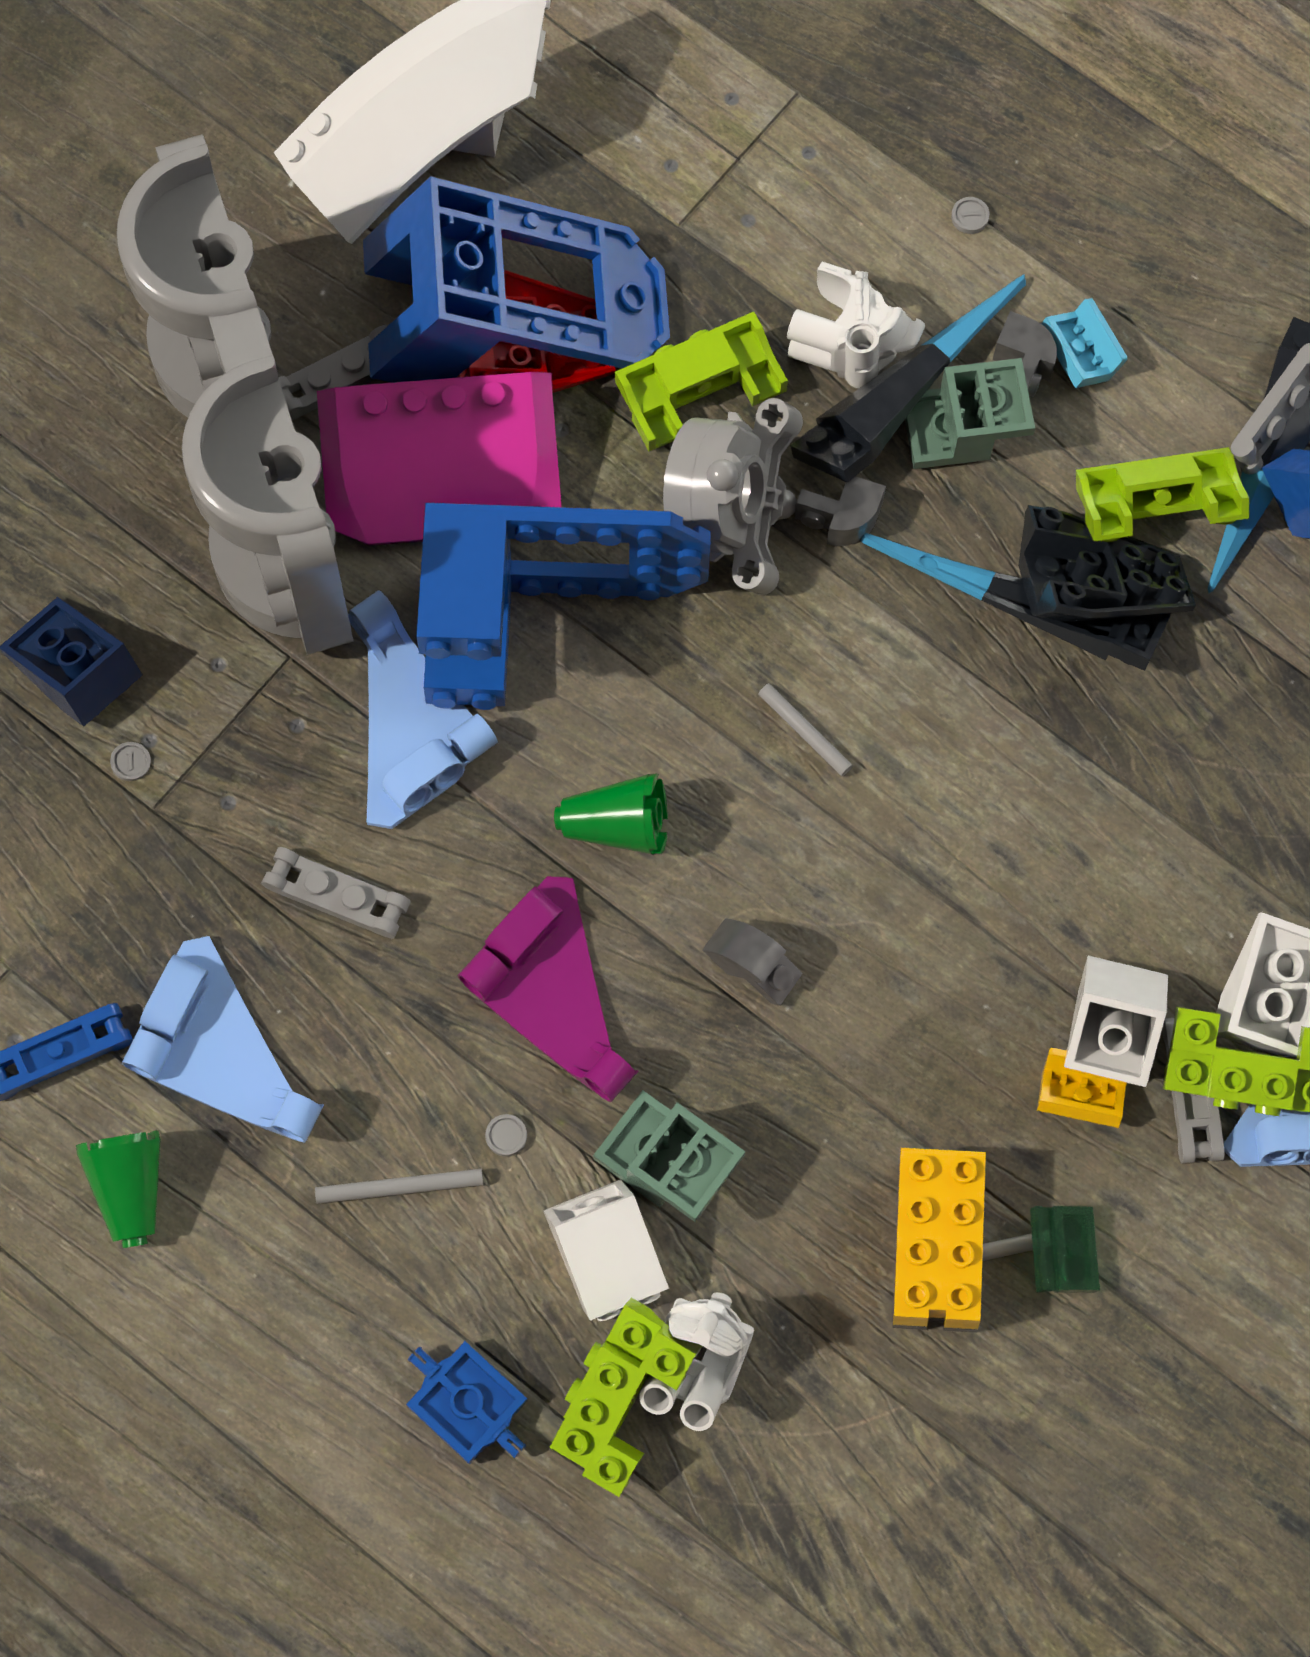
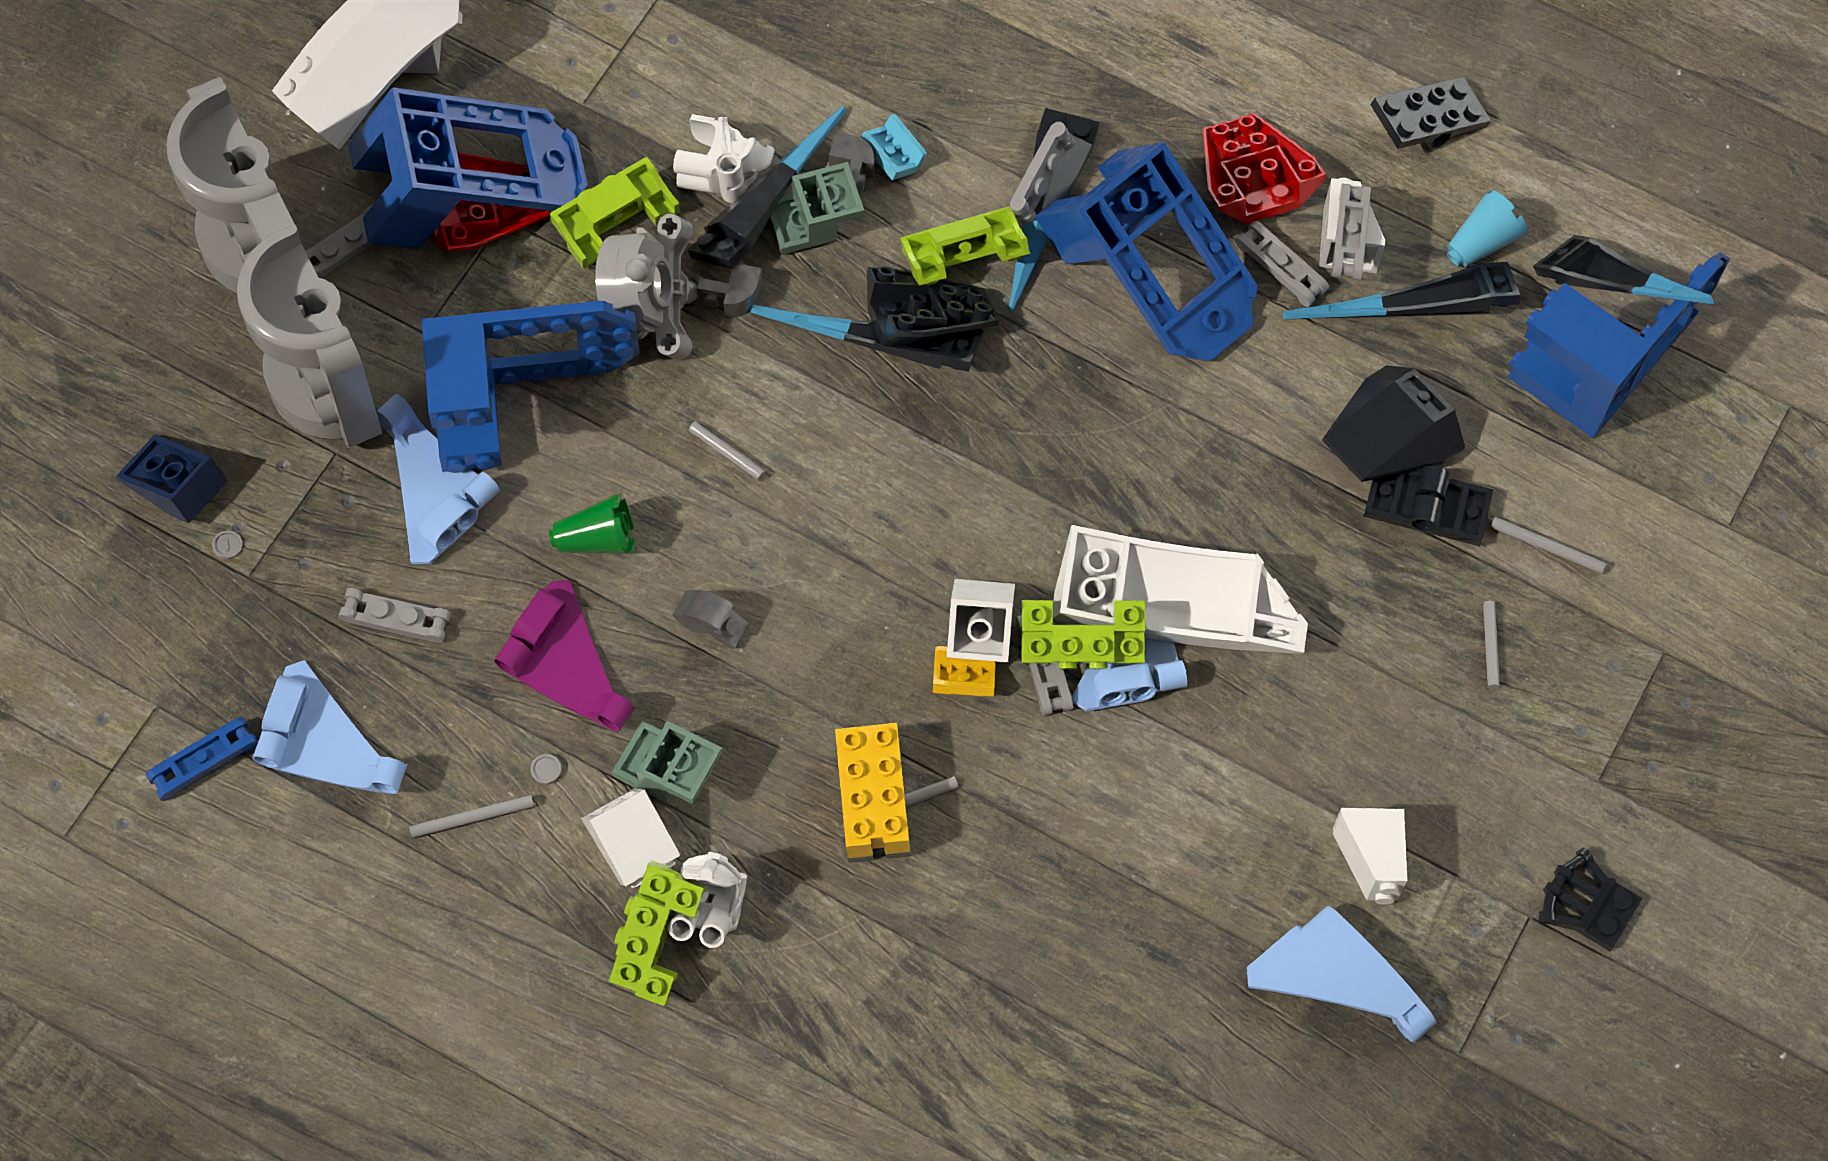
camera: 10 degrees left, 5 degrees down
(124, 1183) = (267, 841): green cone -> none
(435, 443) = (421, 277): dark pink slope -> none
(467, 1402) = (543, 959): blue plate -> none
(970, 215) = (798, 68): light grey piece -> none
(1064, 1249) = (966, 787): clear green plate -> none

